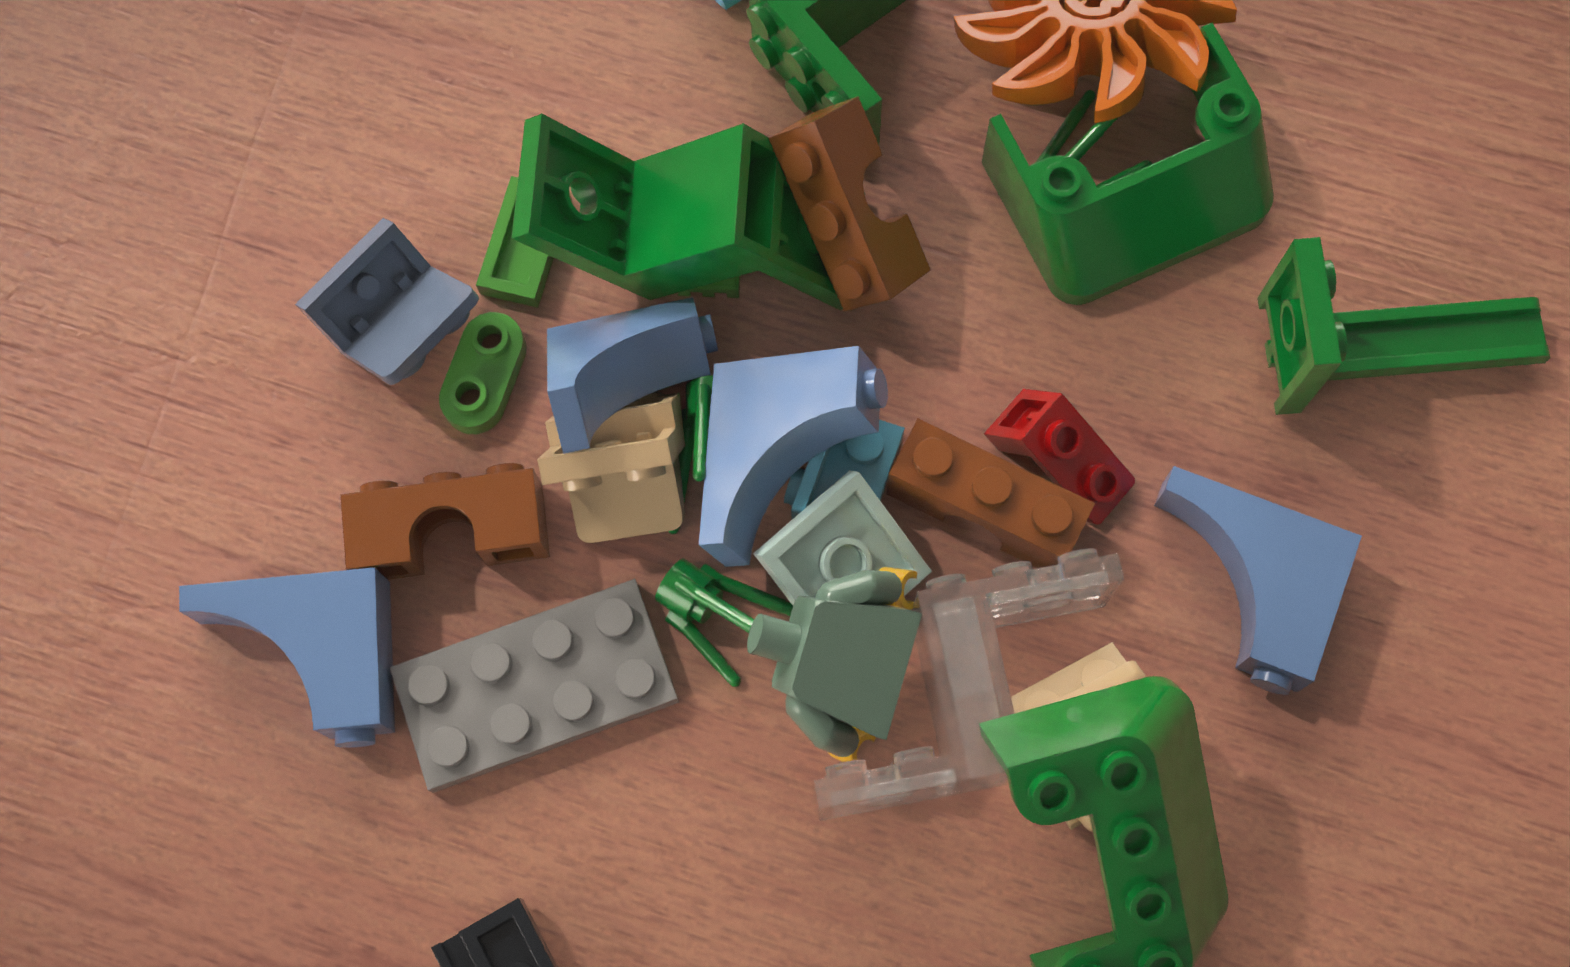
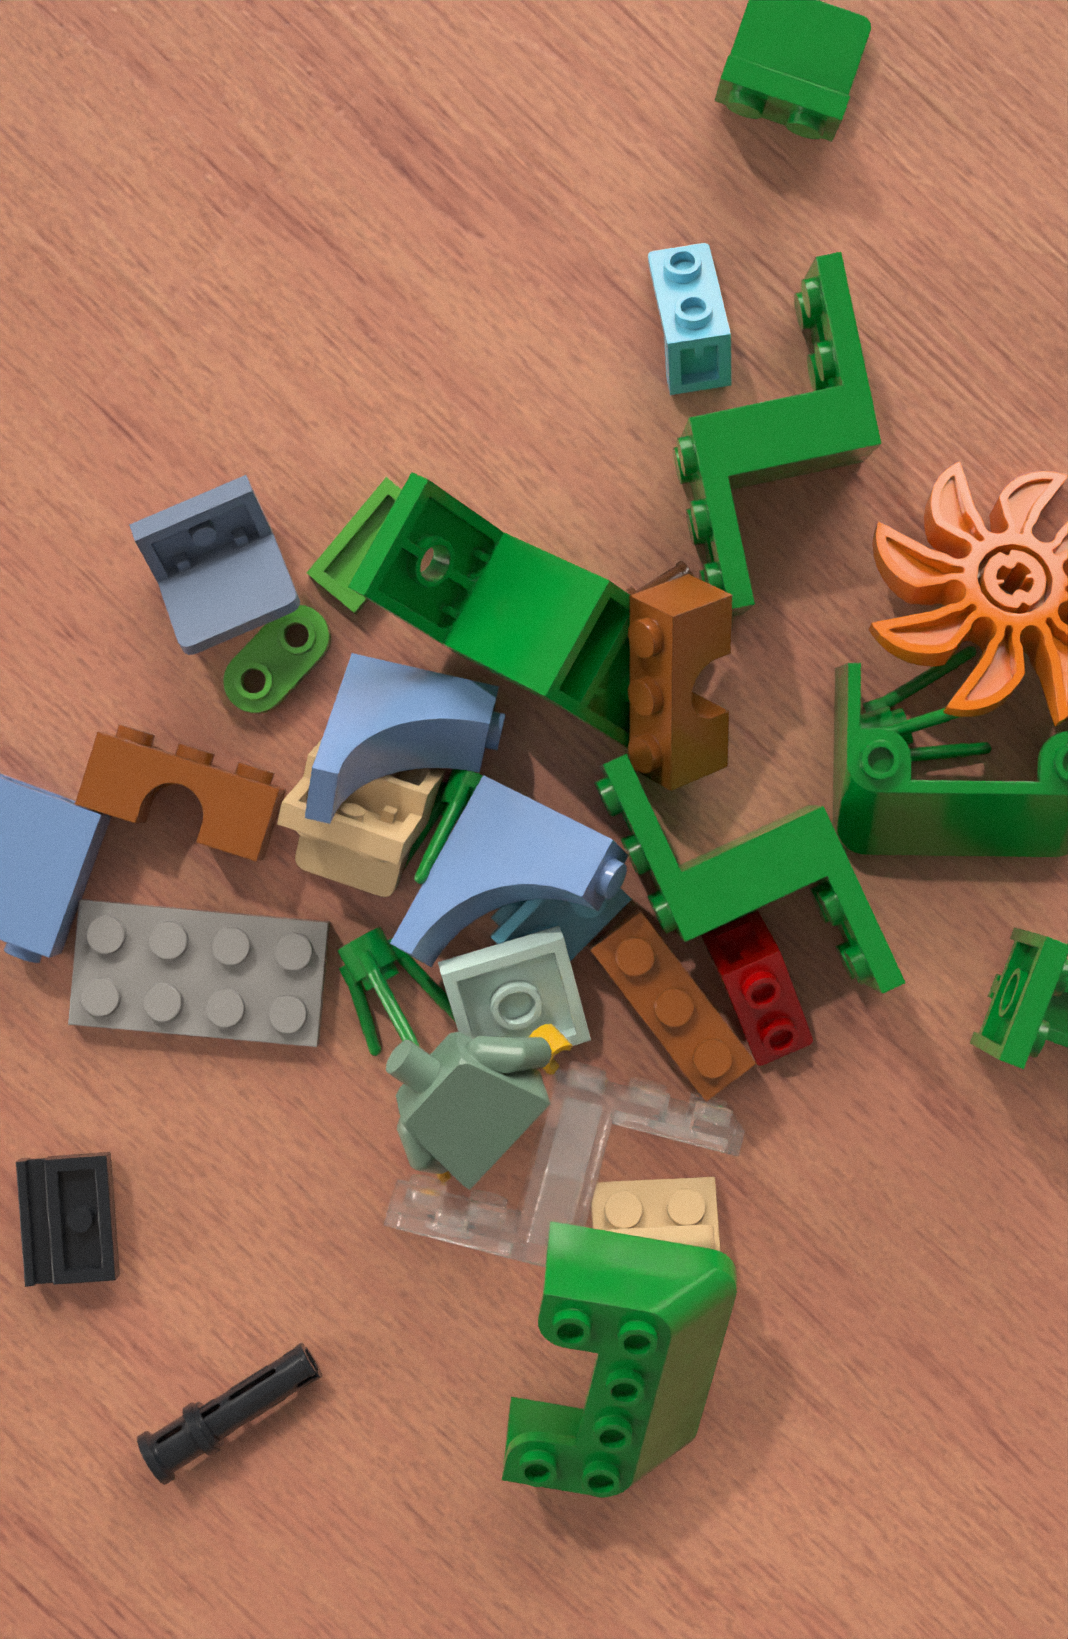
camera: 20 degrees right, 15 degrees up
(1001, 336) = (750, 875): none -> green bracket
(1283, 570) = (892, 1195): medium blue arch -> none

